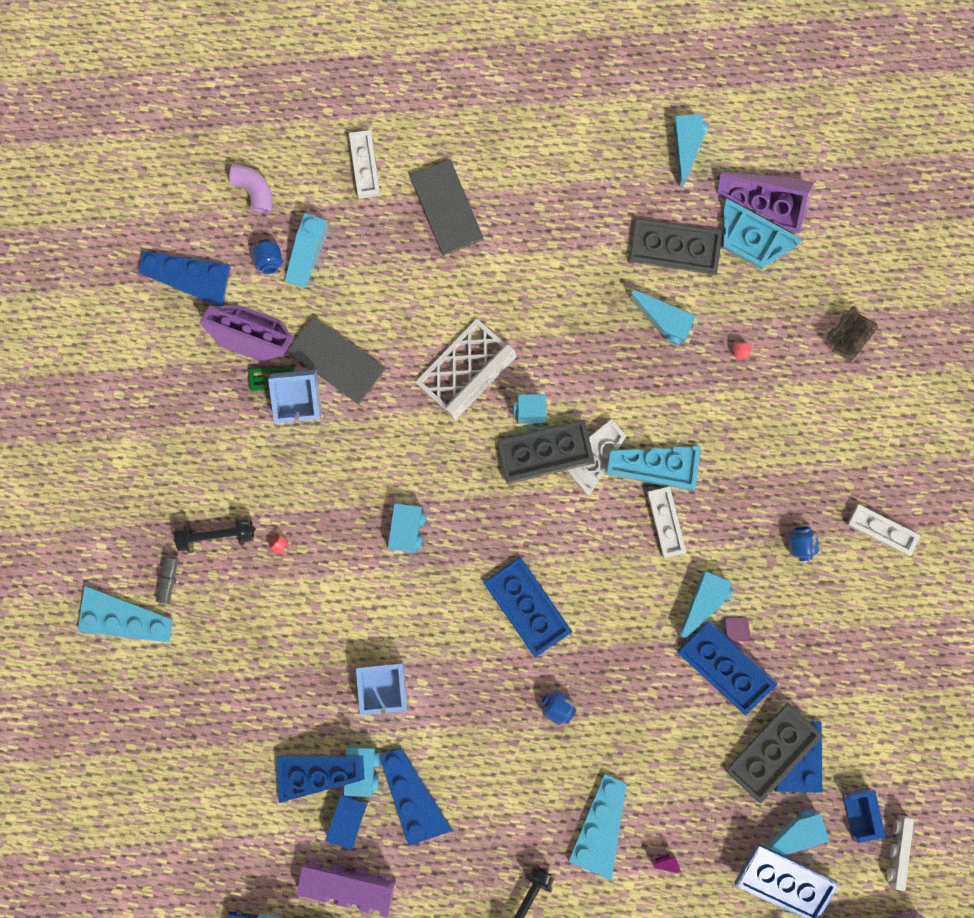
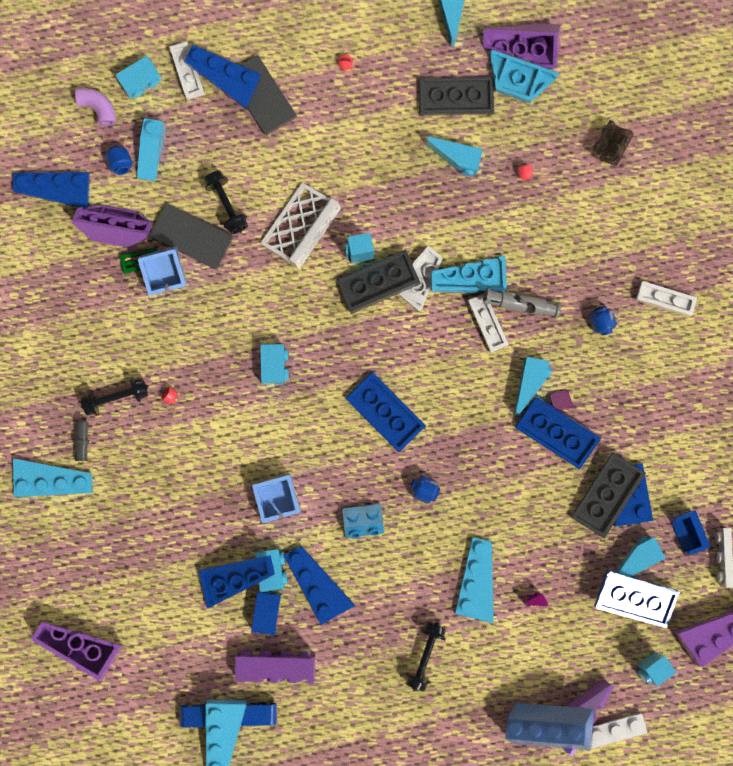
camera: 15 degrees left, 0 degrees up
(123, 826) = (83, 651): none -> medium lavender wedge
(307, 163) = (138, 77): none -> medium azure brick
(375, 301) = (215, 181): none -> black piece
(409, 178) = (228, 76): none -> blue wing
(479, 731) = (363, 521): none -> dark azure bracket
(549, 187) = (345, 64): none -> coral hinge
(707, 505) = (519, 302): none -> light grey piece

